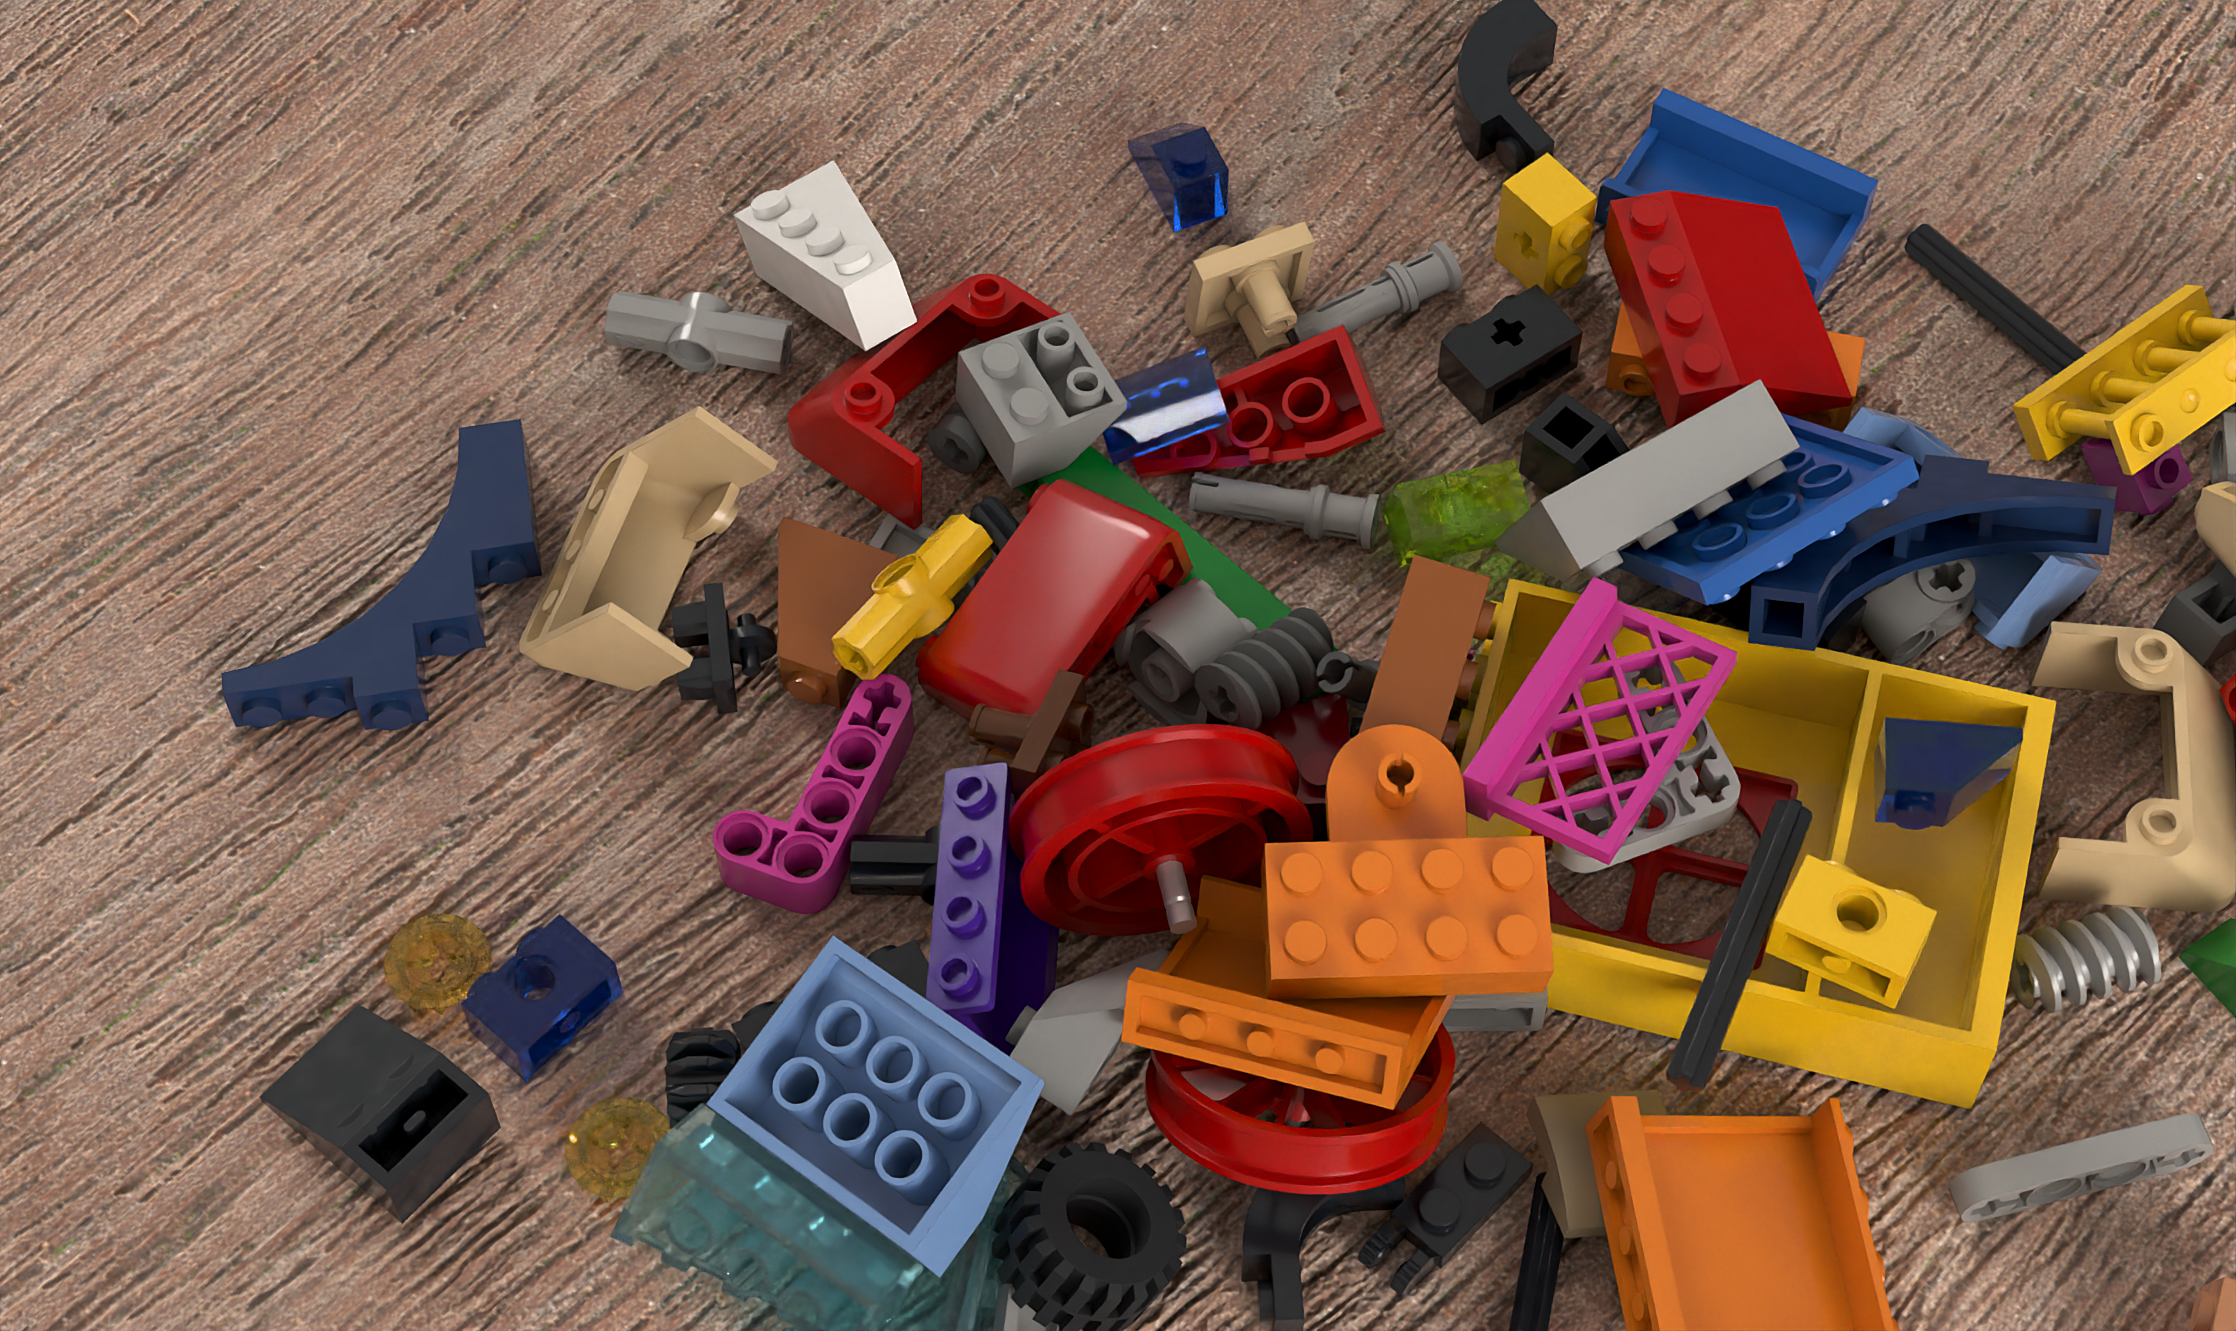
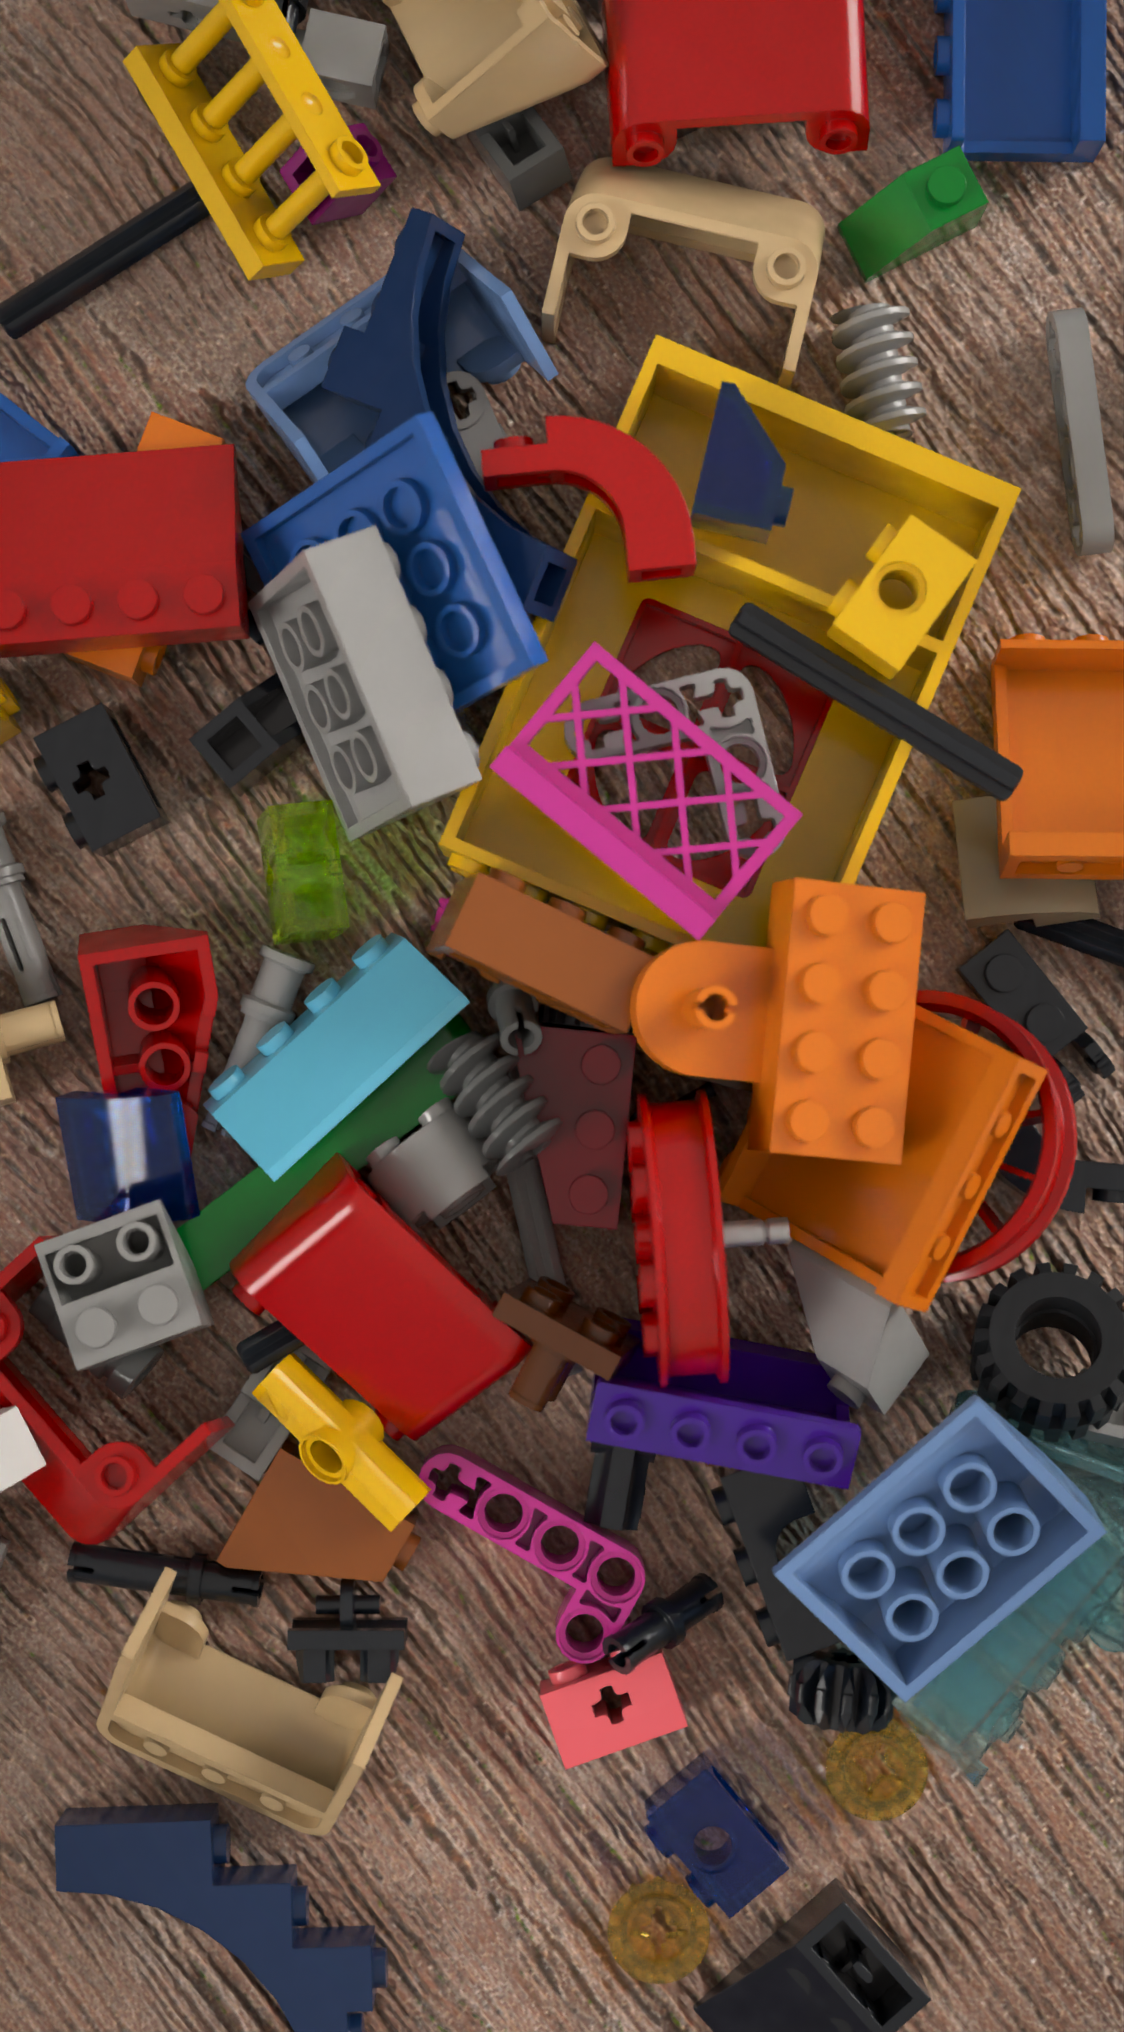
camera: 85 degrees left, 30 degrees up
(680, 918) = (588, 1727): none -> coral brick
(759, 911) = (662, 1623): none -> black pin
(762, 502) = (140, 1570): none -> black pin
(1286, 546) = (333, 1052): none -> medium azure slope
(1853, 699) = (616, 471): none -> red arch

